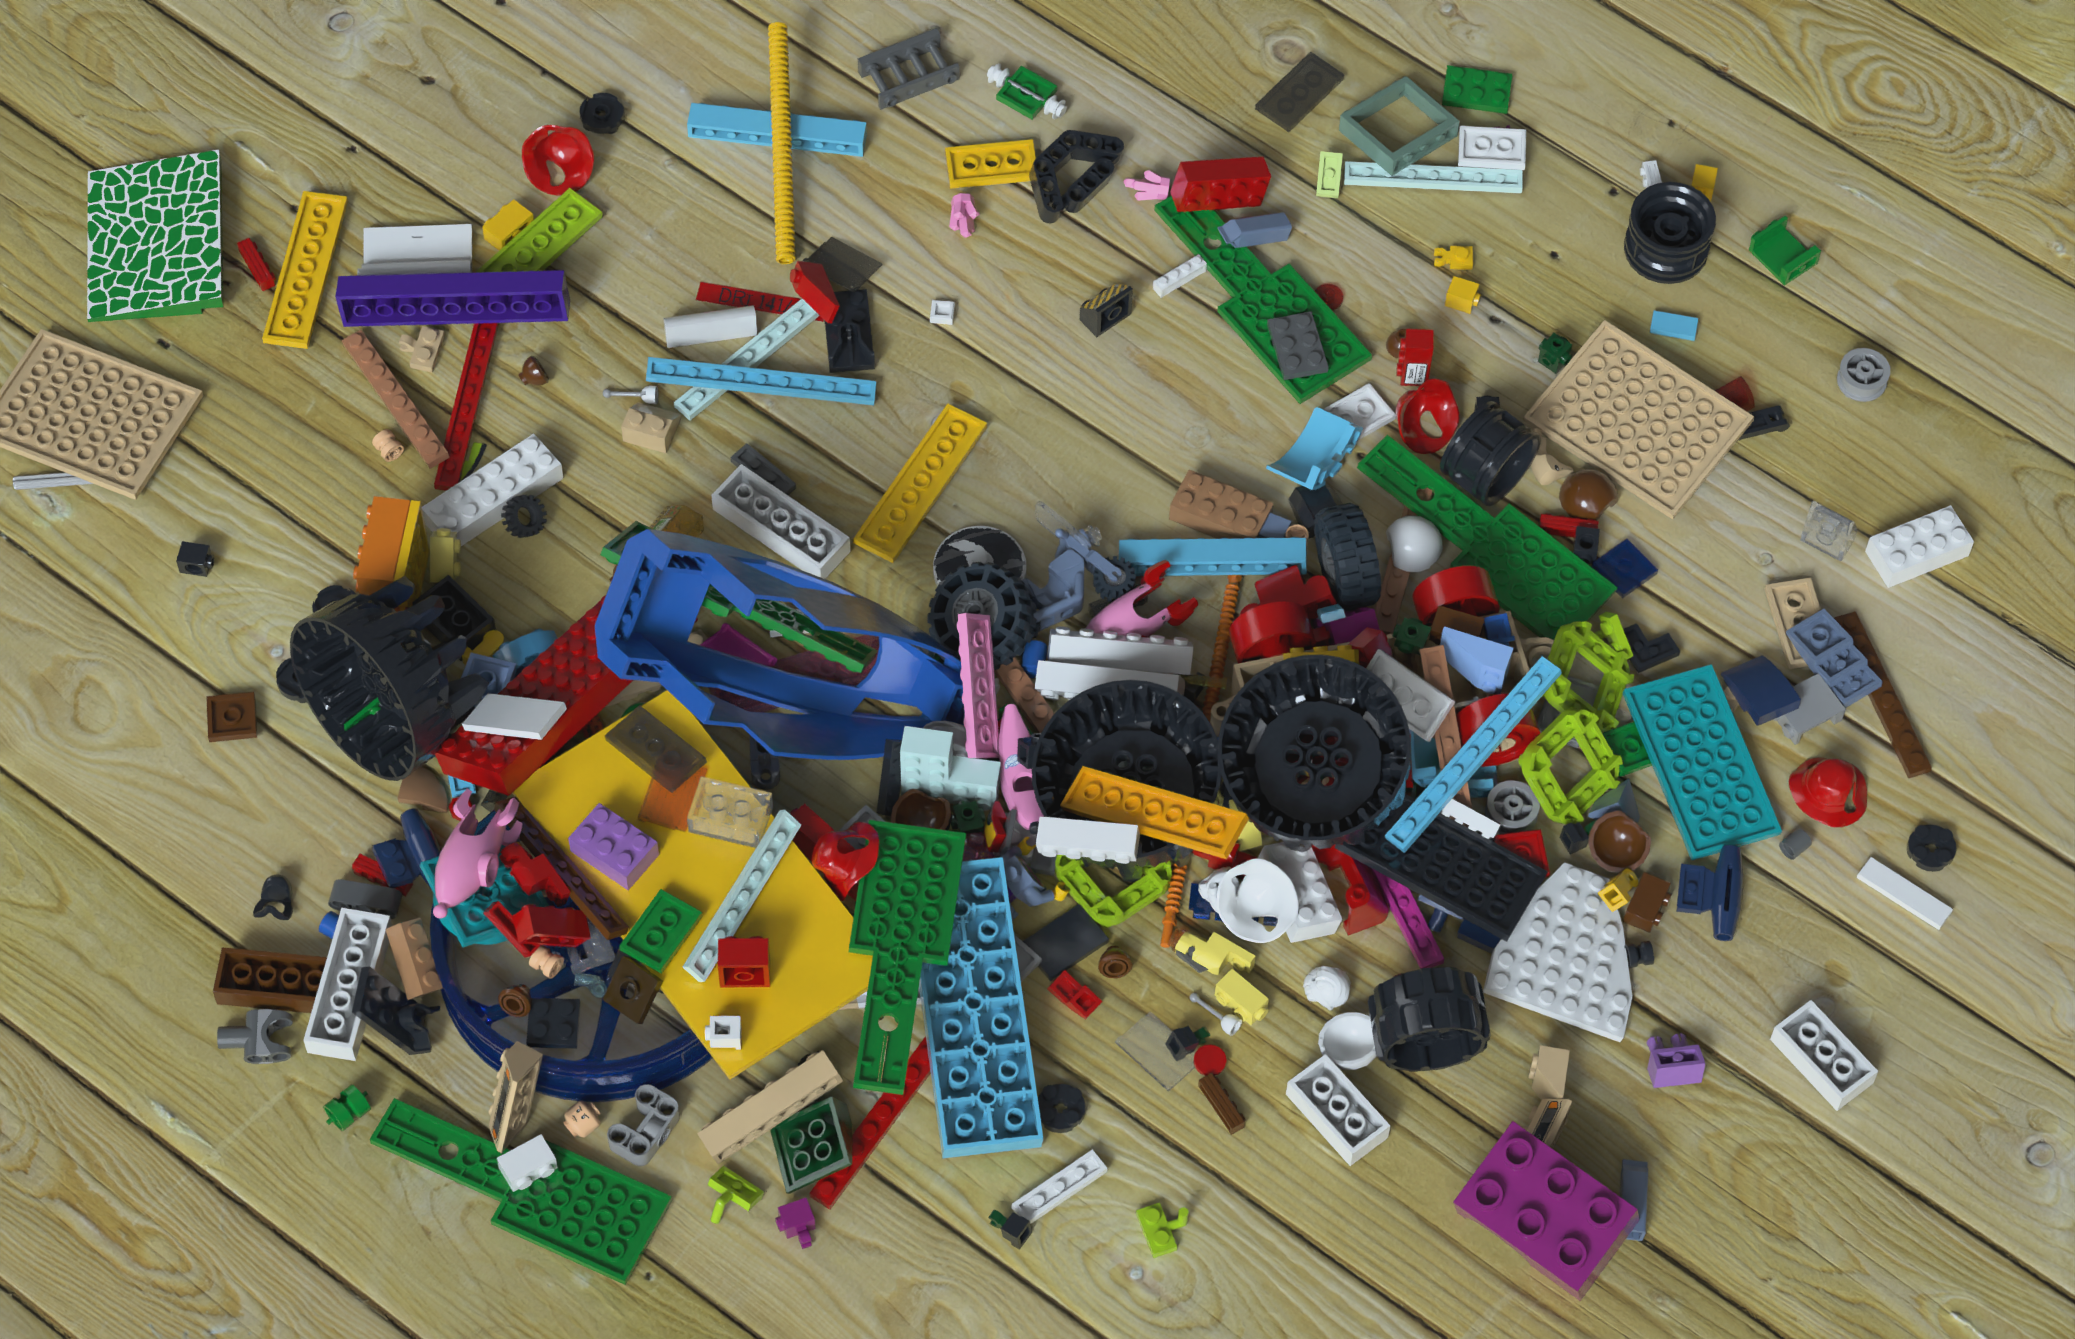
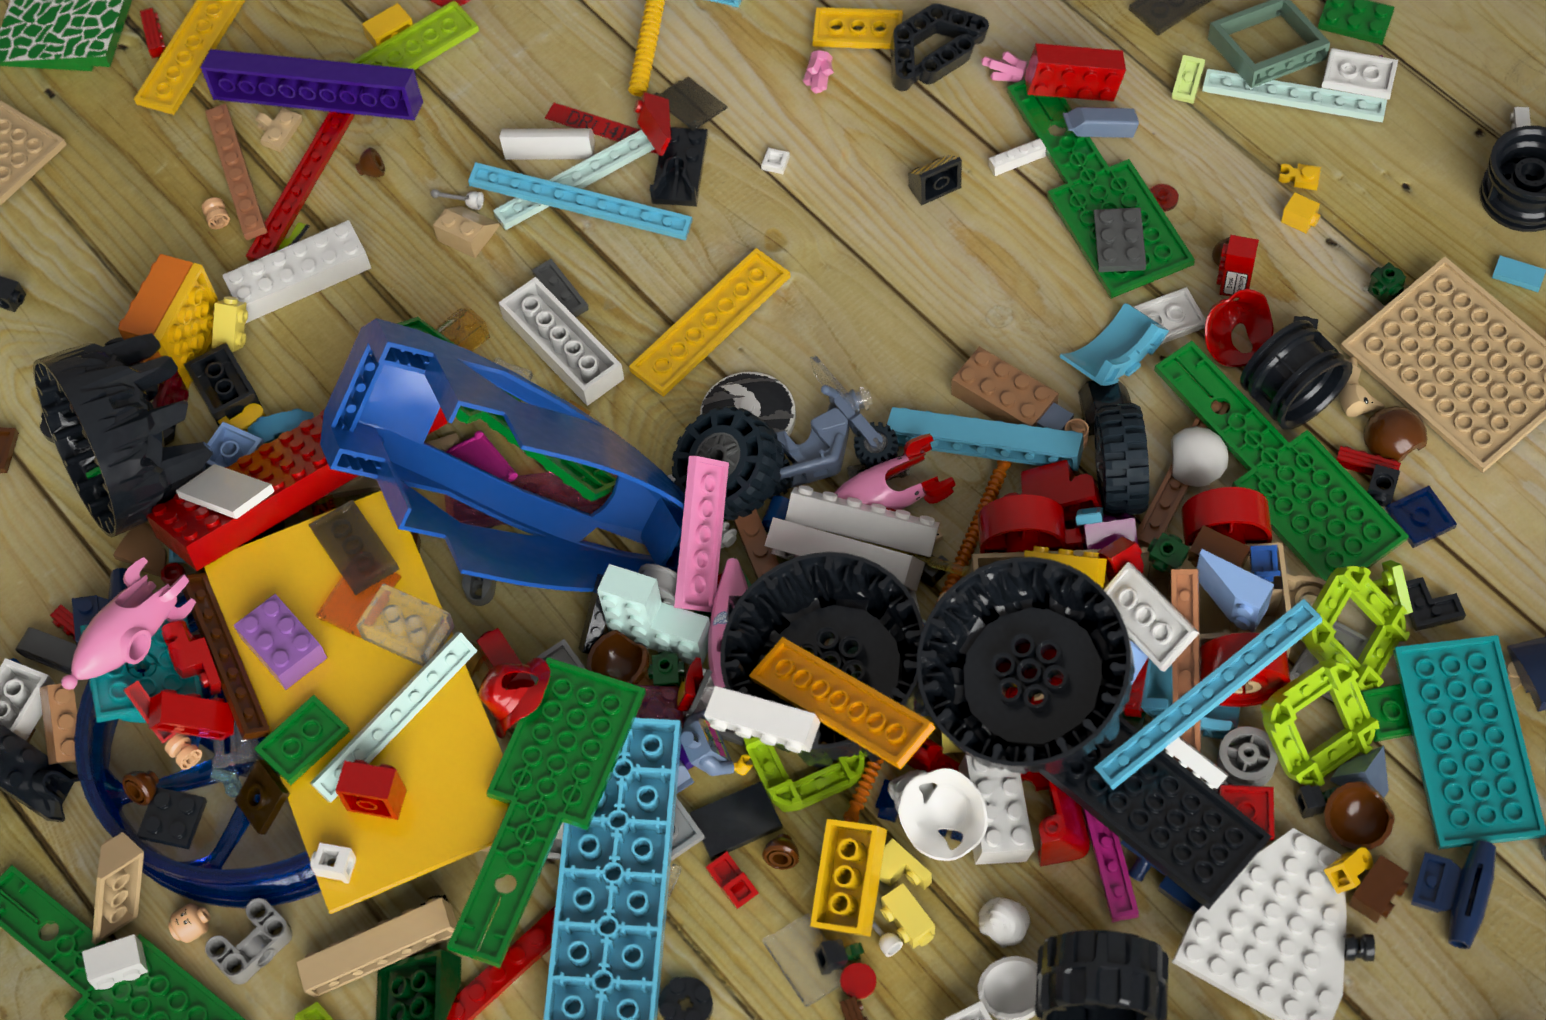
camera: 20 degrees right, 0 degrees up
(417, 250) = (301, 37): white door -> none
(513, 522) = (327, 287): black tyre -> none
(1184, 971) = (848, 877): none -> yellow brick

